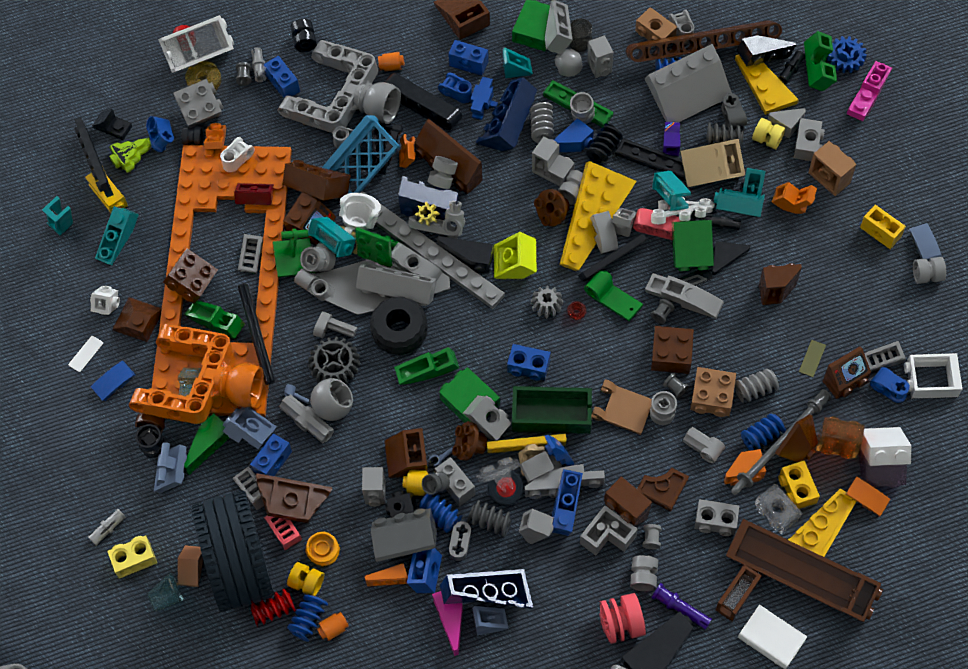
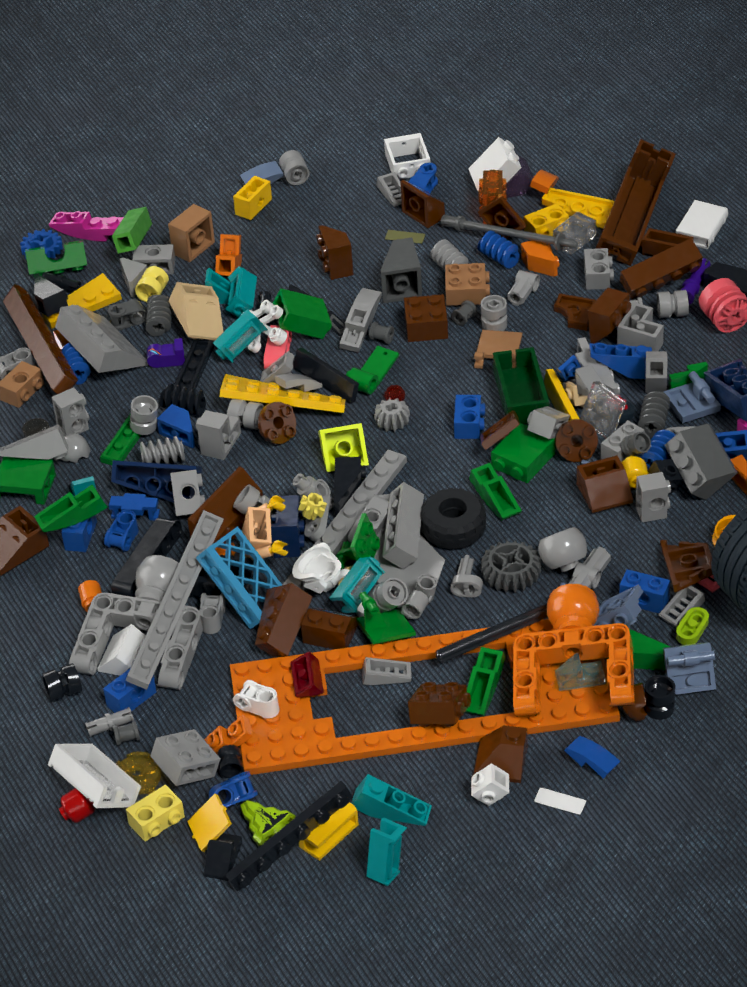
camera: 100 degrees left, 20 degrees down
(136, 114) = (209, 822): none -> yellow piece
(159, 81) = (155, 813): none -> light yellow brick
(226, 487) = (689, 629): none -> lime plate
(323, 82) = (121, 651): none -> white slope
(345, 103) = (173, 602): none -> light grey plate
(407, 167) = (258, 528): none -> light nougat torso
(466, 42) = (71, 510): none -> green slope
(478, 130) = (179, 481): none -> light grey brick
(491, 377) = (499, 429): none -> reddish brown plate
(504, 554) = (693, 399): none -> sand blue plate
(536, 566) = (682, 378): none -> green slope
(692, 571) = (661, 269): none -> reddish brown brick
(739, 336) = (401, 272): none -> dark grey slope
(844, 120) = (132, 230): none -> bright green brick

